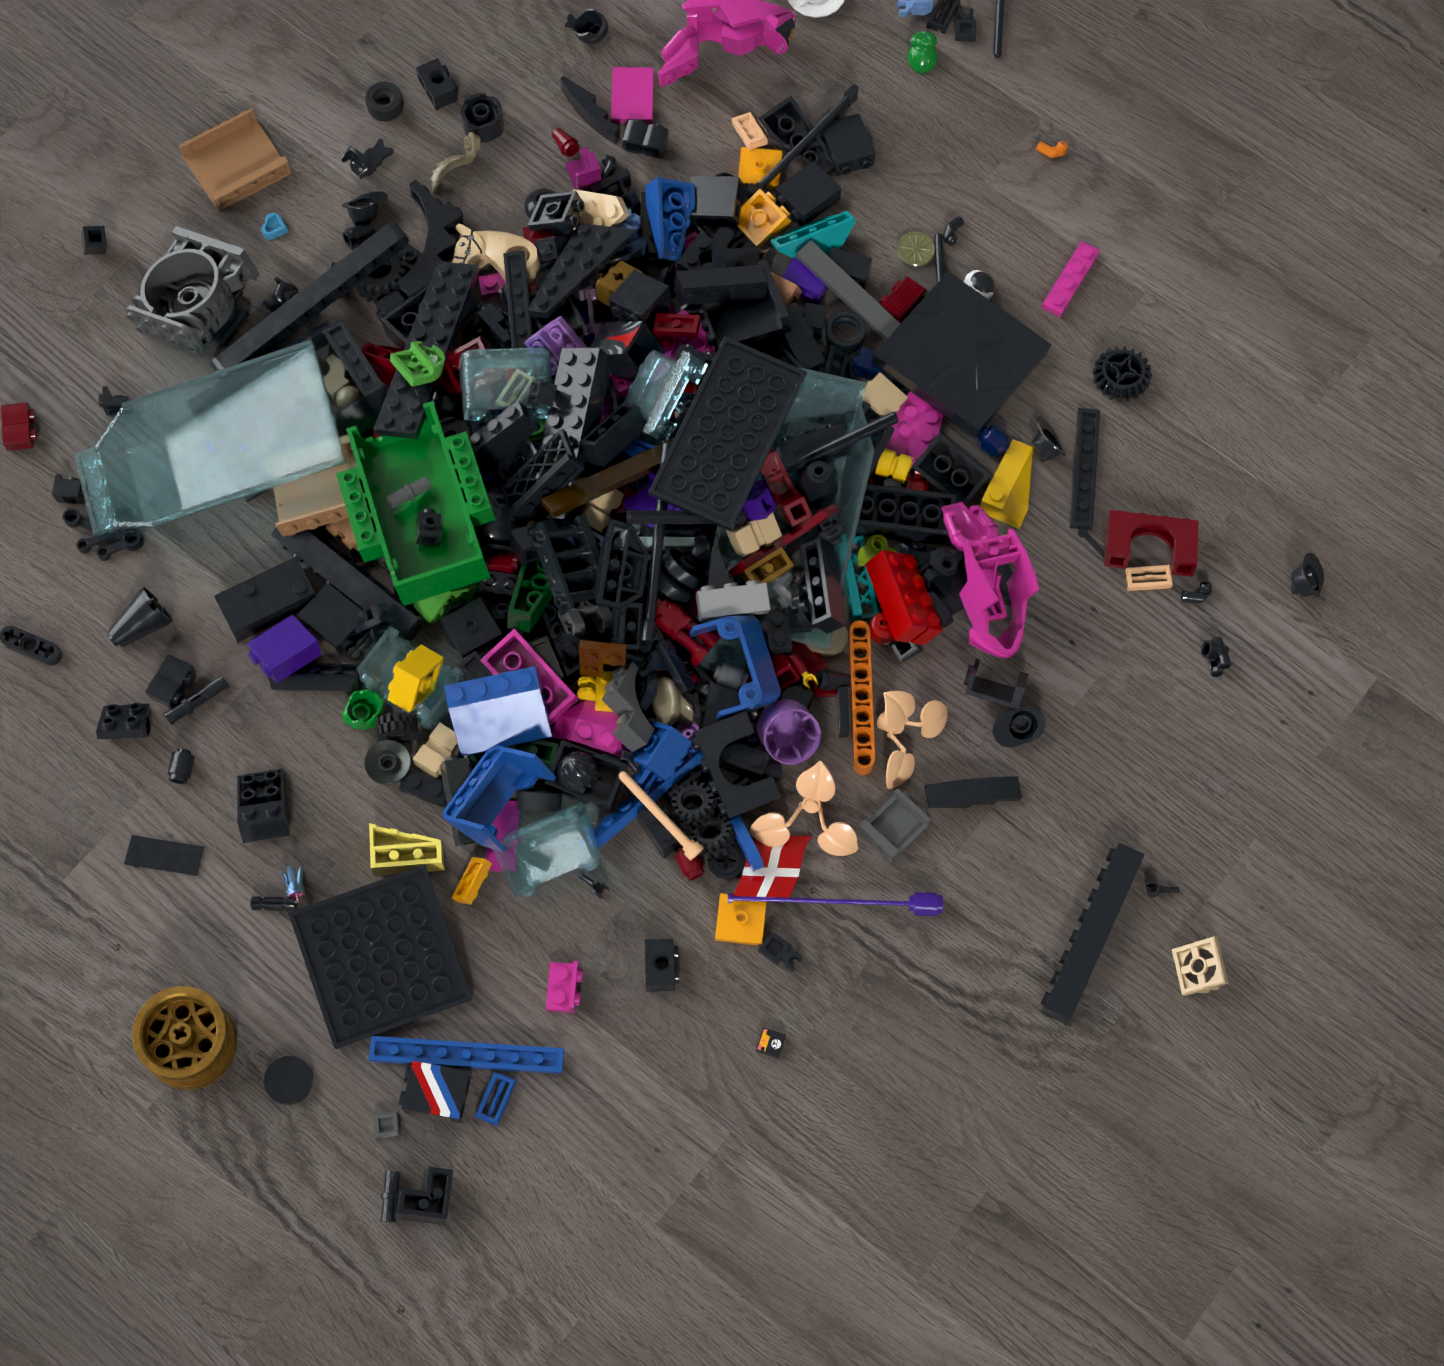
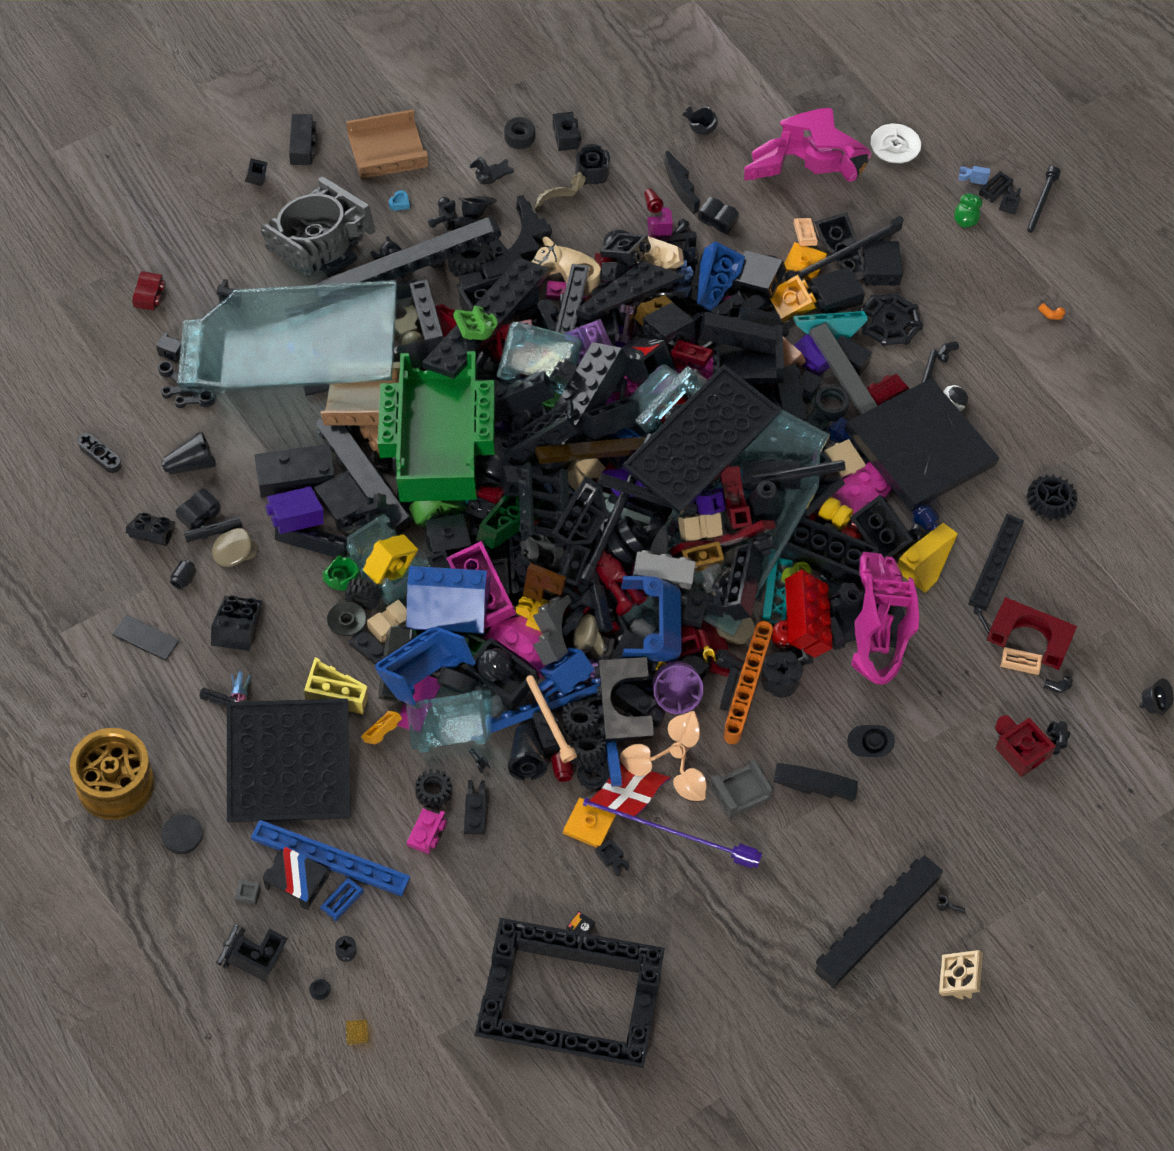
camera: 15 degrees right, 10 degrees down
(133, 182) = (302, 139): none -> black brick
(228, 715) = (234, 548): none -> dark tan piece
(332, 224) = (446, 211): none -> black piece
(408, 492) = (433, 416): dark grey pin -> none
(428, 527) = (440, 443): black brick -> none
(507, 1214) = (319, 989): none -> black plate
(522, 1161) = (345, 954): none -> black wheel
(544, 925) = (433, 799): none -> black tyre
(565, 1249) = (356, 1031): none -> clear yellow plate
(609, 944) = (475, 810): none -> black hinge
(627, 758) = (539, 668): black hand -> none
(632, 94) = (719, 180): dark pink tile -> none
(645, 861) = (526, 755): none -> black cone
(656, 951) = (508, 848): black brick -> none
(853, 1062) = (578, 947): none -> black slope
(883, 220) = (888, 327): none -> black plate
(897, 665) = (781, 674): none -> black brick
(898, 708) = (770, 692): light nougat plant -> none
(915, 249) = (912, 357): olive wheel -> none
(990, 460) = (918, 531): none -> black plate
(994, 691) = (871, 715): black panel -> none
(1046, 443) = (970, 531): black piece -> none
(1070, 279) = (1033, 414): dark pink plate -> none
(1183, 670) = (1027, 737): none -> dark red brick

